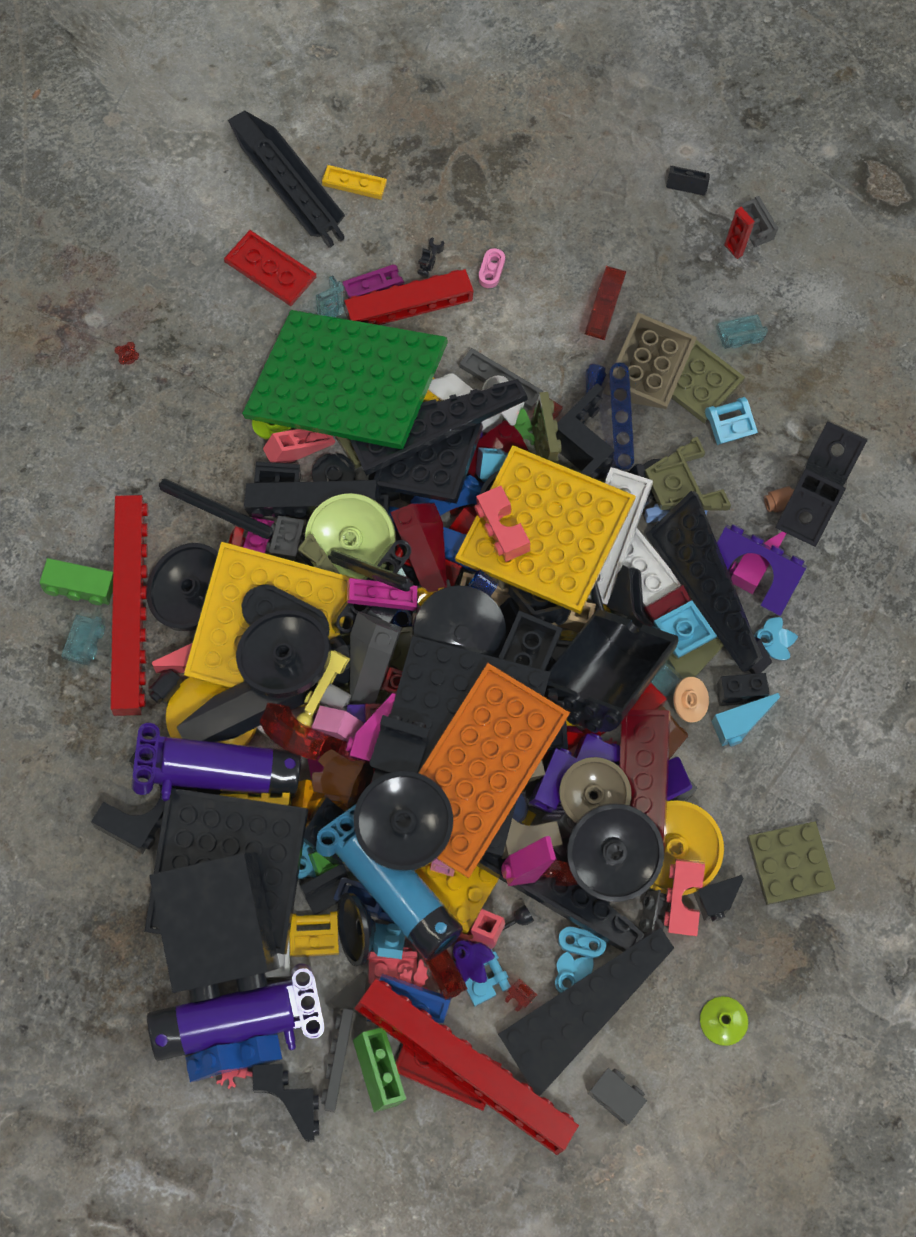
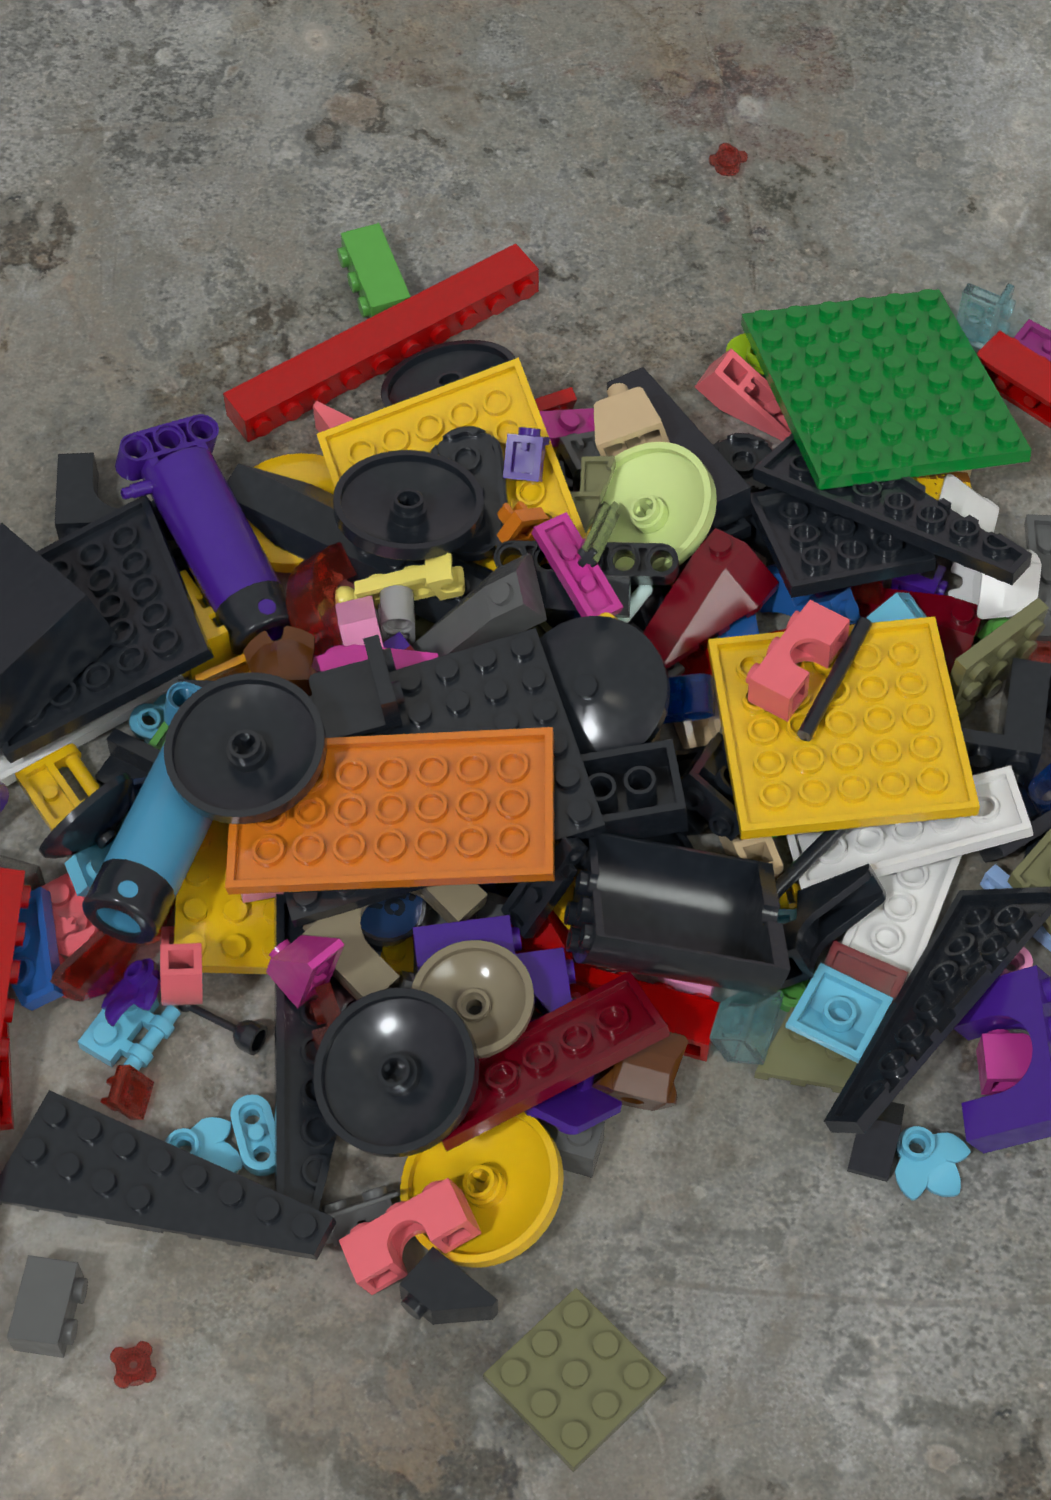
camera: 65 degrees right, 10 degrees down
(83, 640) = (301, 323): clear light blue bracket -> none
(165, 687) = (296, 439): black brick -> none
(216, 508) = (582, 356): black axle -> none
(270, 268) = (982, 237): red tile -> none
(276, 472) = (689, 396): black hinge -> none
(287, 575) = (525, 455): none -> bracket
(289, 513) = (626, 420): none -> tan torso
(326, 604) = (519, 522): none -> orange tile
(523, 516) = (834, 679): none -> black bar
(664, 1072) = (141, 1374): none -> clear red plate
(691, 699) = (750, 1099): light nougat dish -> none
(712, 1023) = (263, 1429): lime dish -> none
(738, 722) = (758, 1180): medium azure slope -> none
(742, 688) = (806, 1151): black brick -> none

